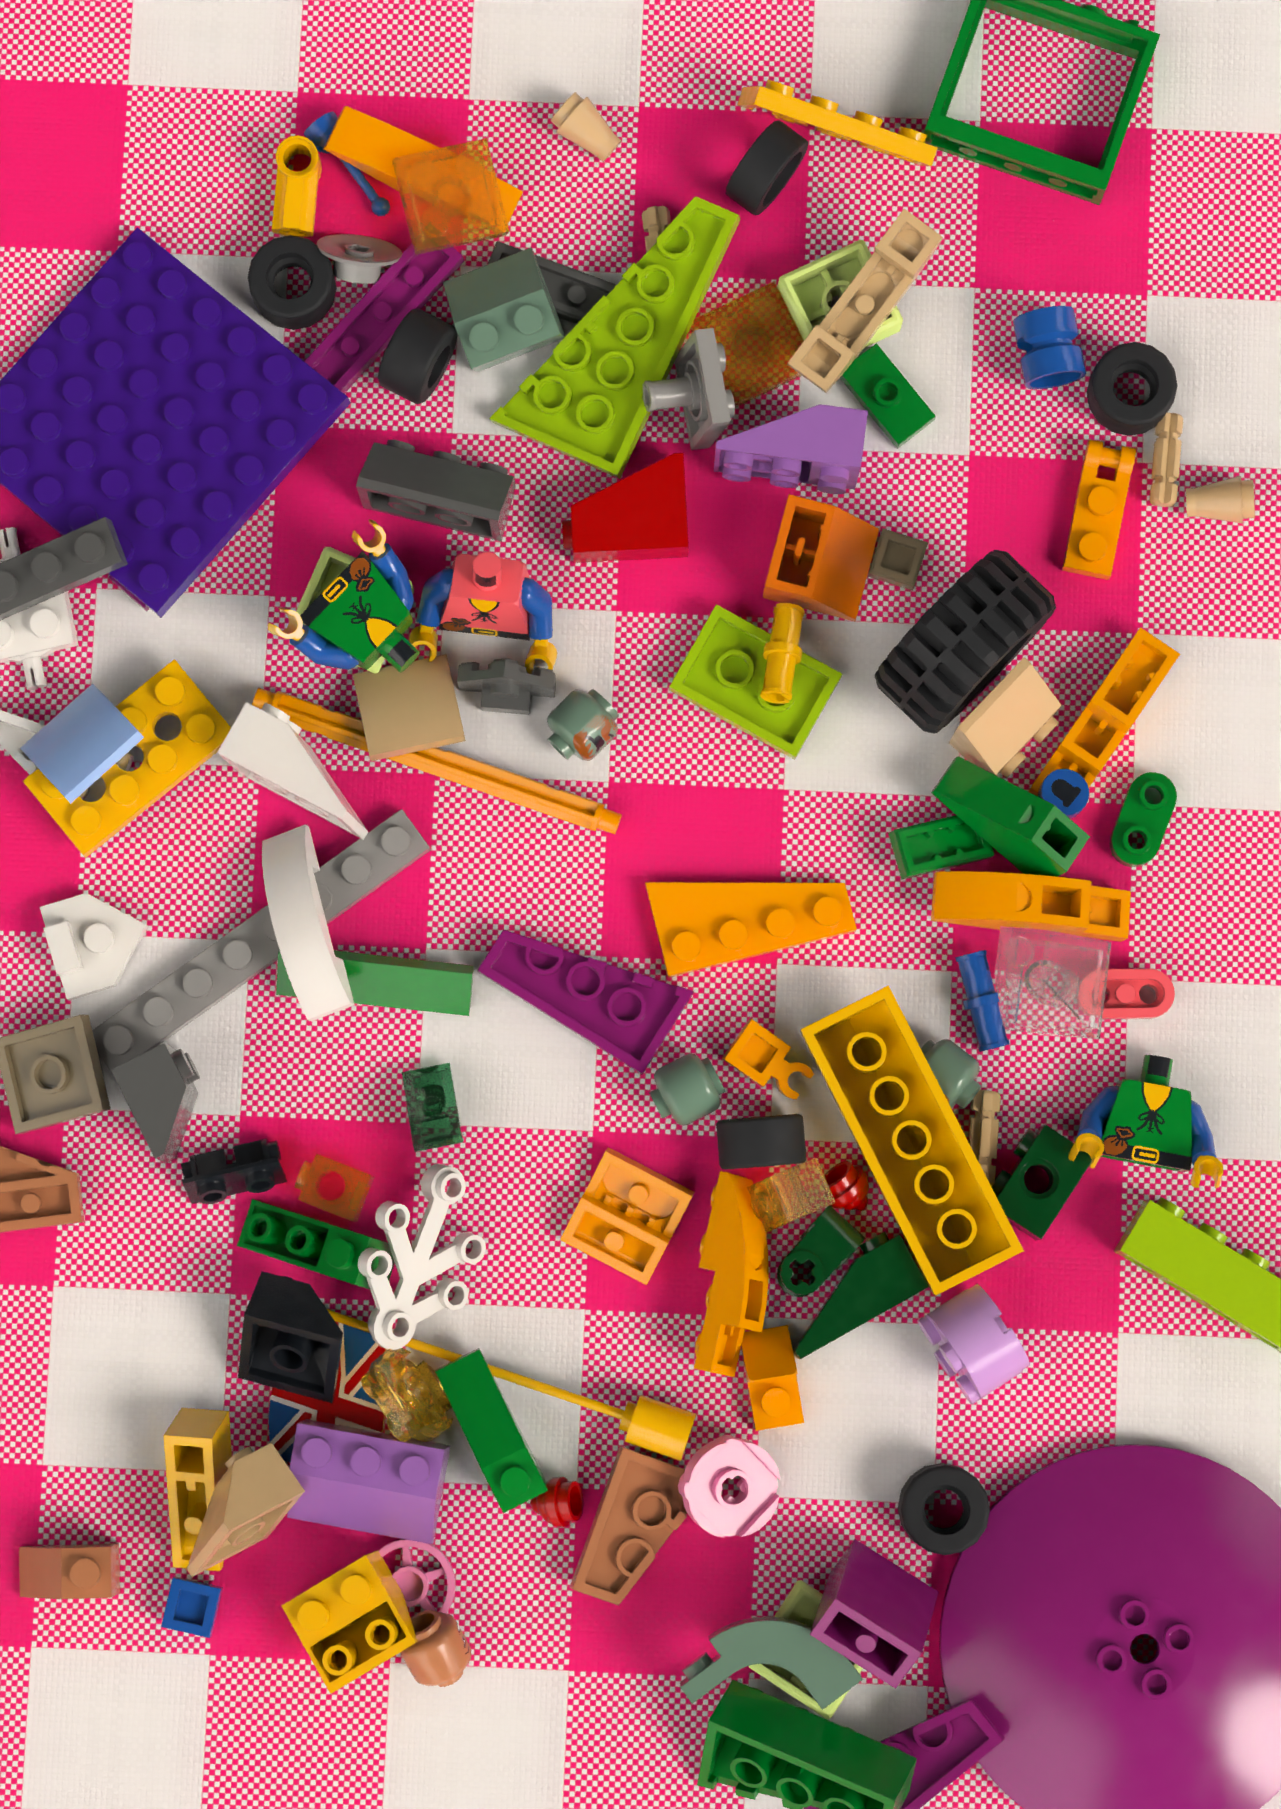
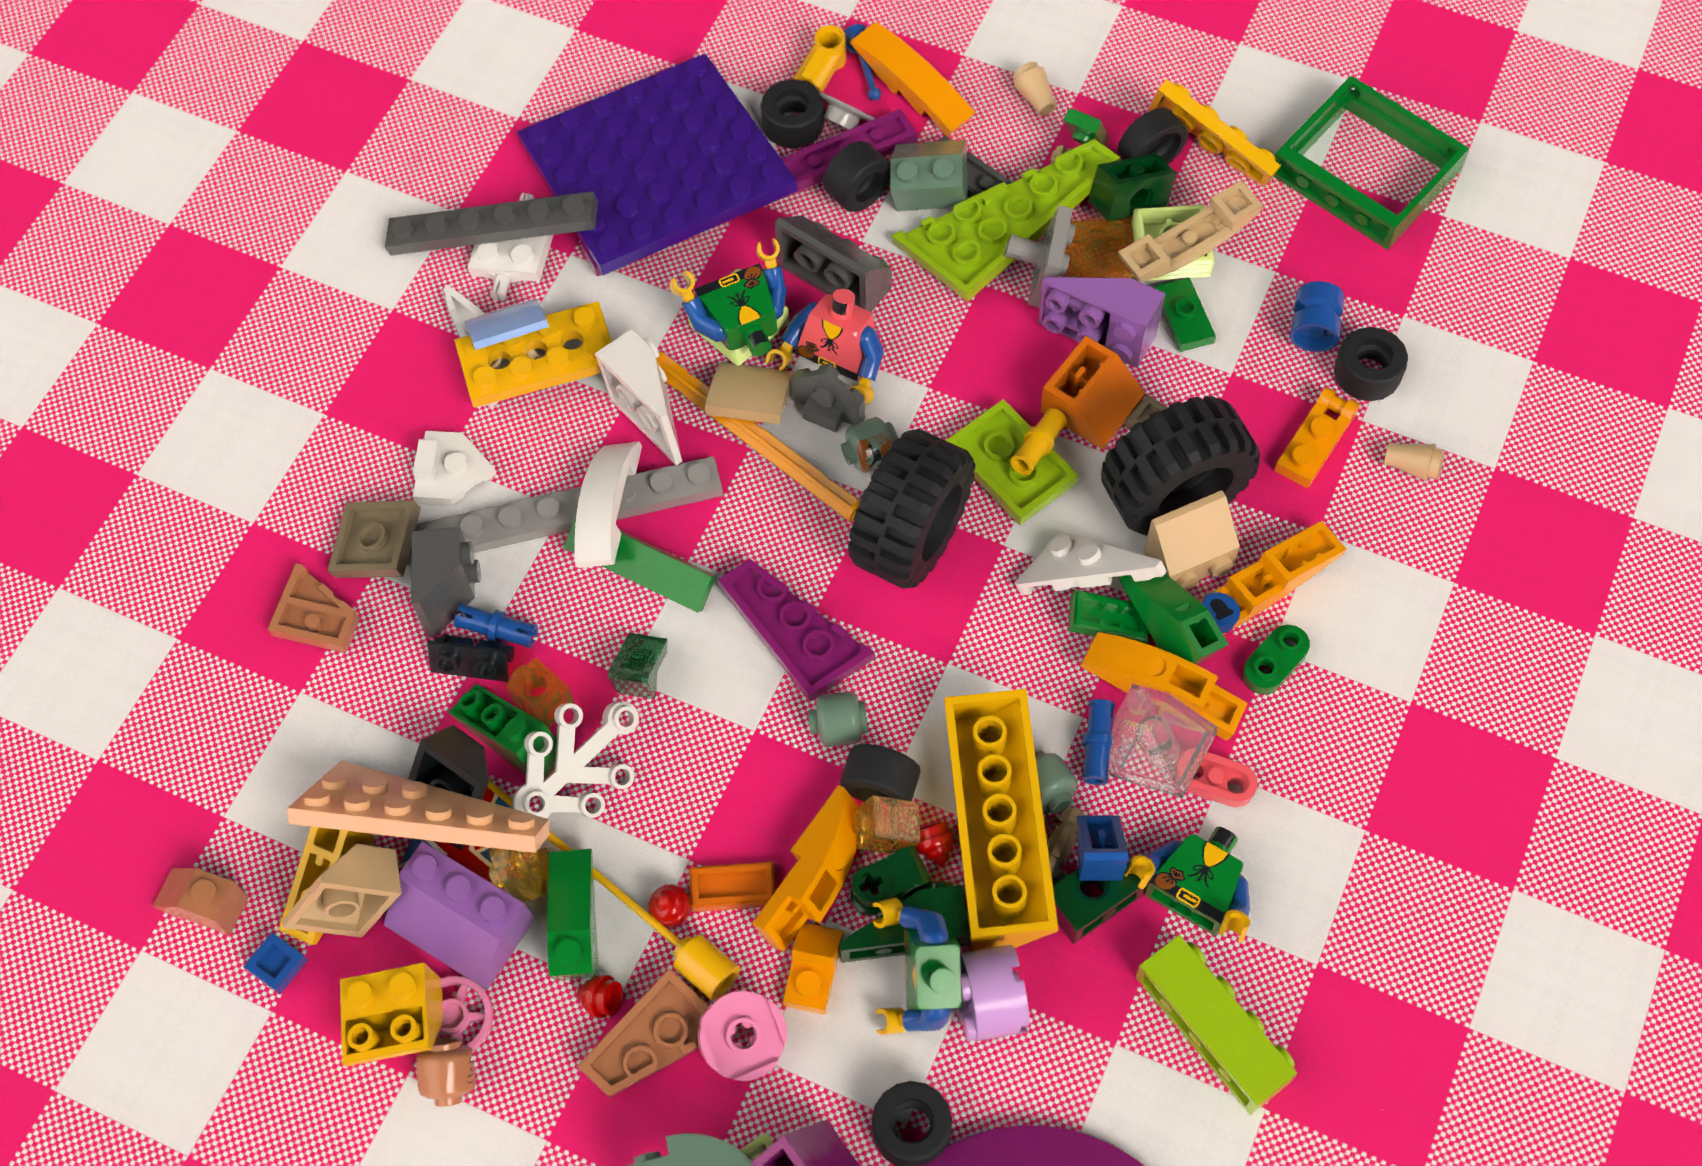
camera: 25 degrees right, 20 degrees down
(242, 1401) = (390, 805): none -> light nougat wing
(244, 1123) = (496, 625): none -> blue pin
(450, 196) = (923, 91): clear yellow plate -> none
(590, 1374) = (669, 905): none -> red plate
(627, 1216) = (752, 800): light orange slope -> none
(633, 517) = (966, 326): red slope -> none
(646, 1323) = (731, 886): none -> orange tile
(677, 815) = (911, 508): none -> black tyre
(678, 180) = (1085, 127): none -> green plate
(736, 921) = (937, 623): light orange wing -> none
(761, 1056) = (907, 719): light orange plate -> none
(765, 246) = (1131, 185): none -> dark green brick
(885, 792) = (1085, 563): none -> white wing
(904, 1344) = (930, 969): none -> torso
(1034, 1136) = (1101, 848): none -> blue slope
(1166, 460) = (1381, 421): tan axle -> none

